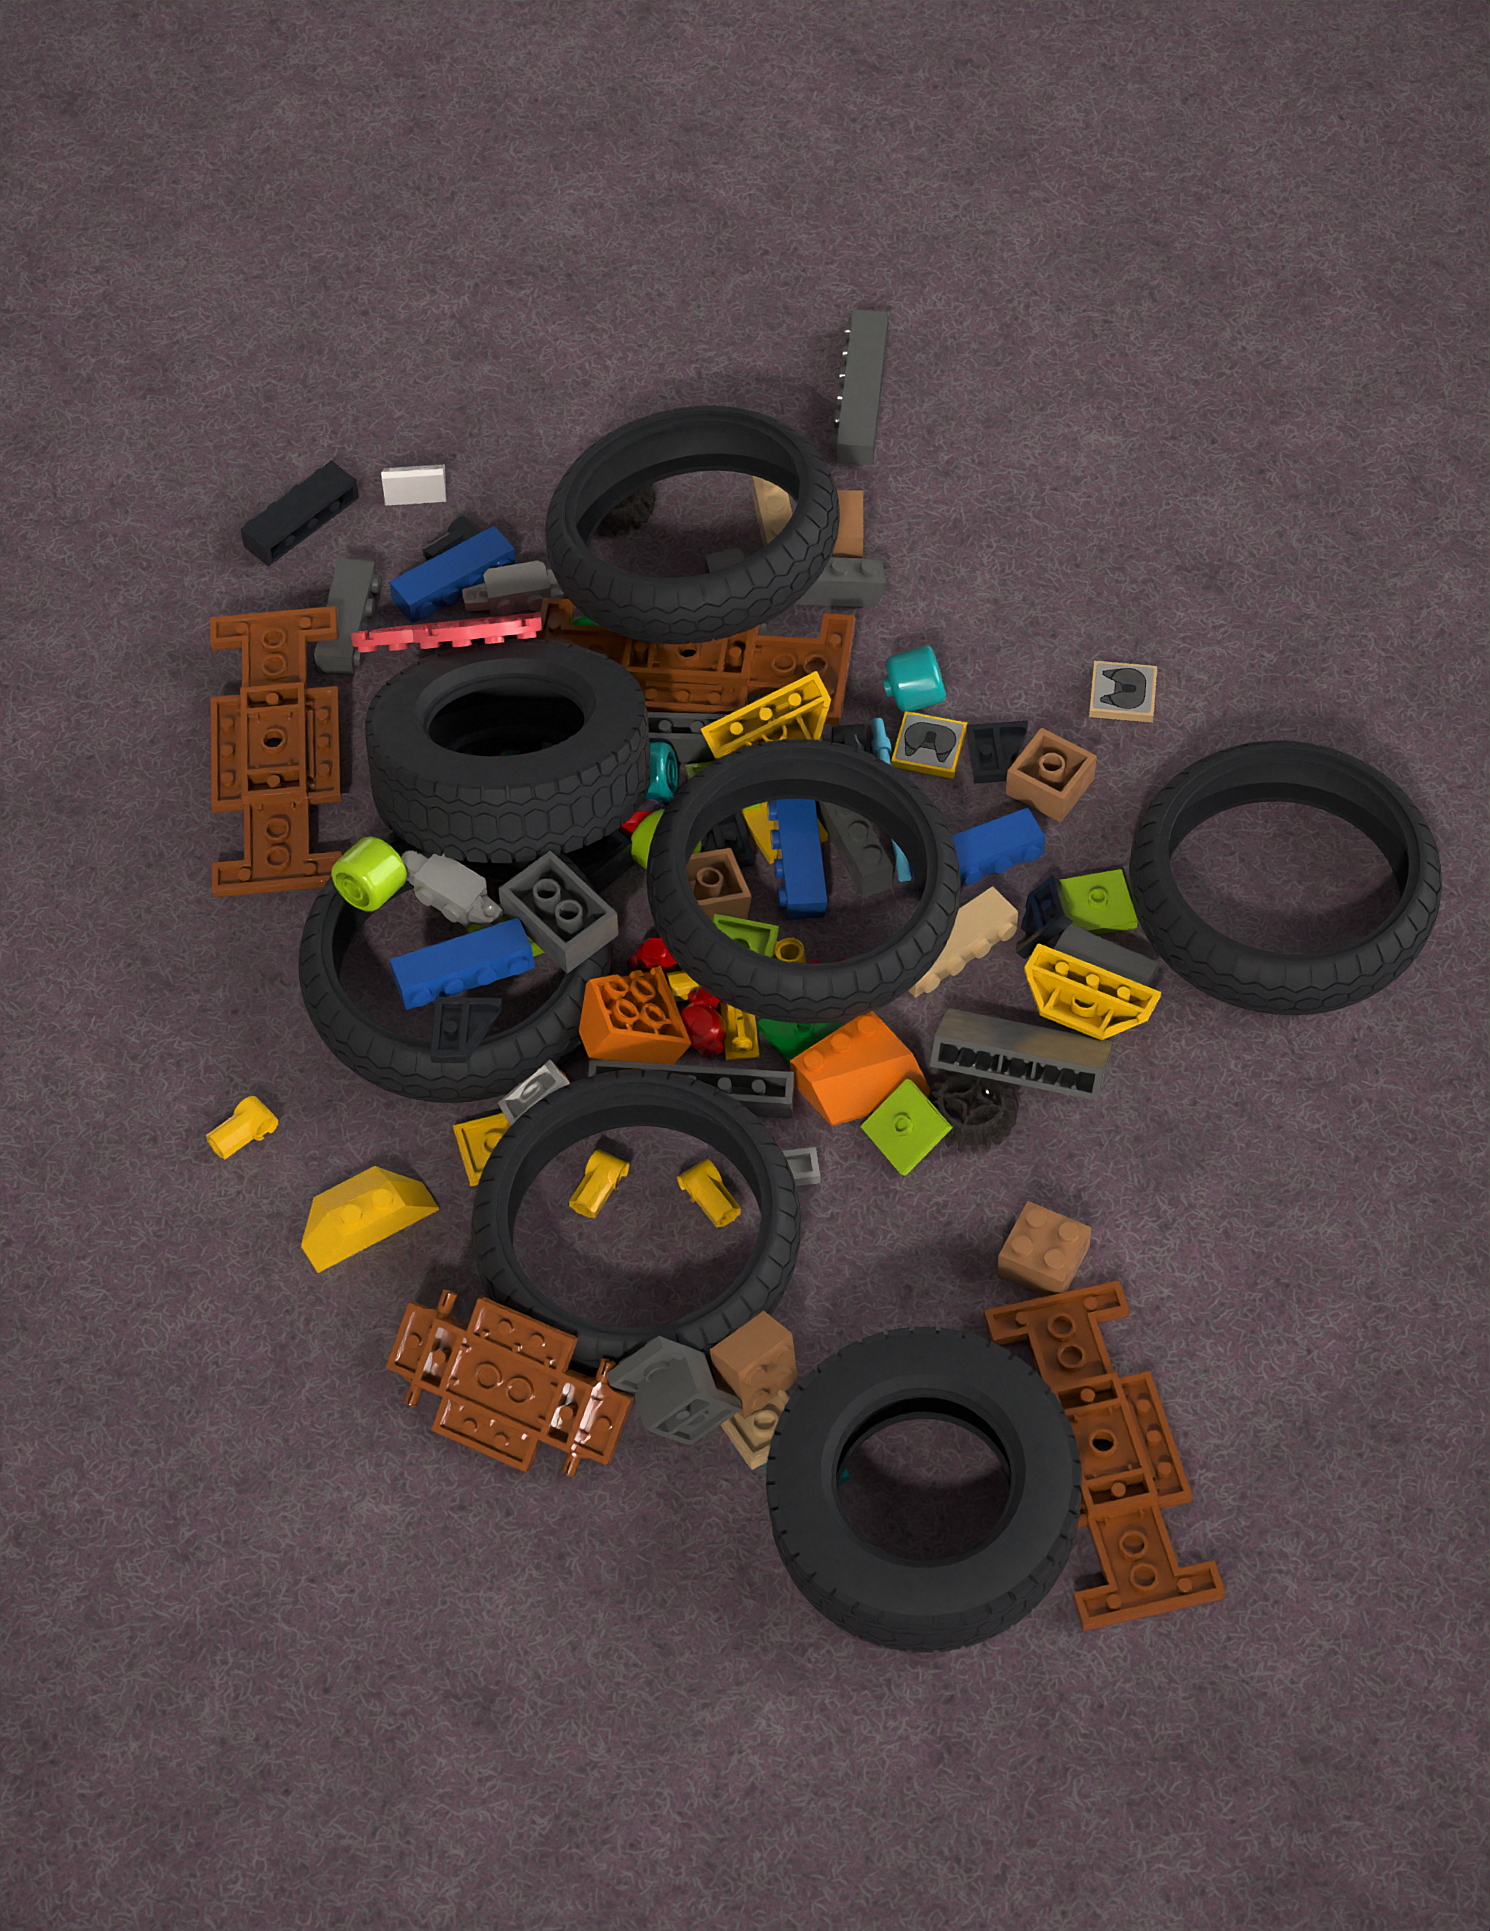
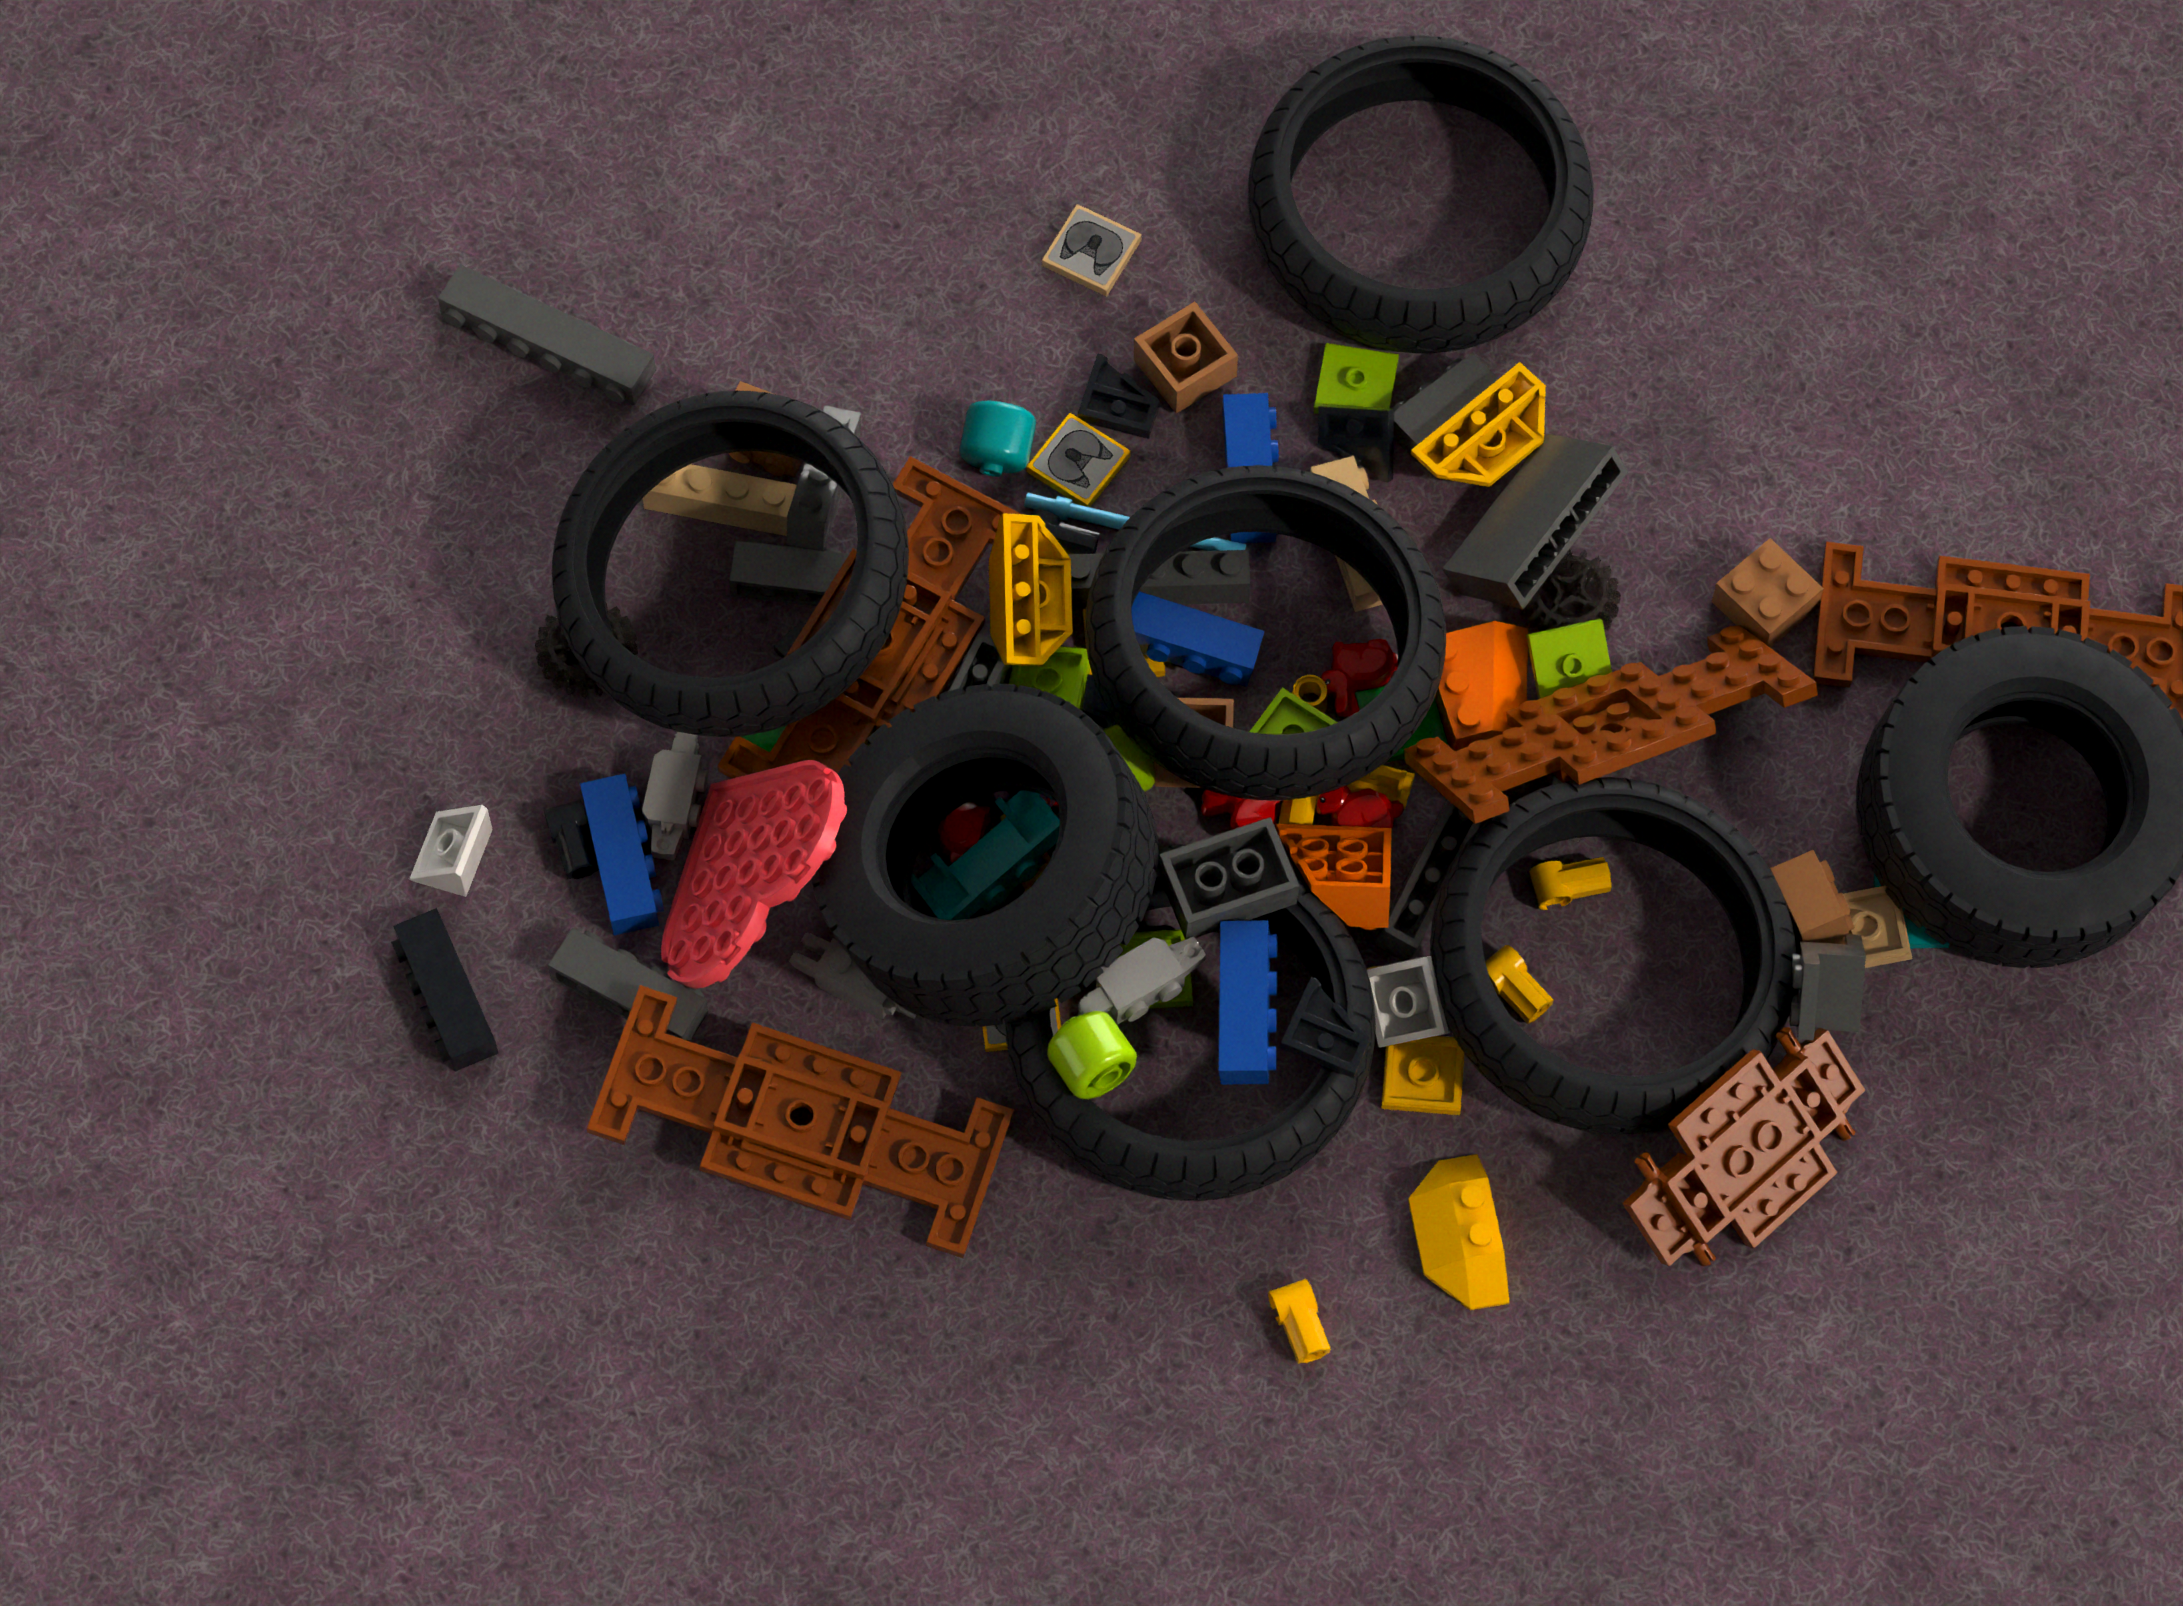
camera: 70 degrees left, 10 degrees up
(869, 1183) = (1657, 718): none -> dark orange piece

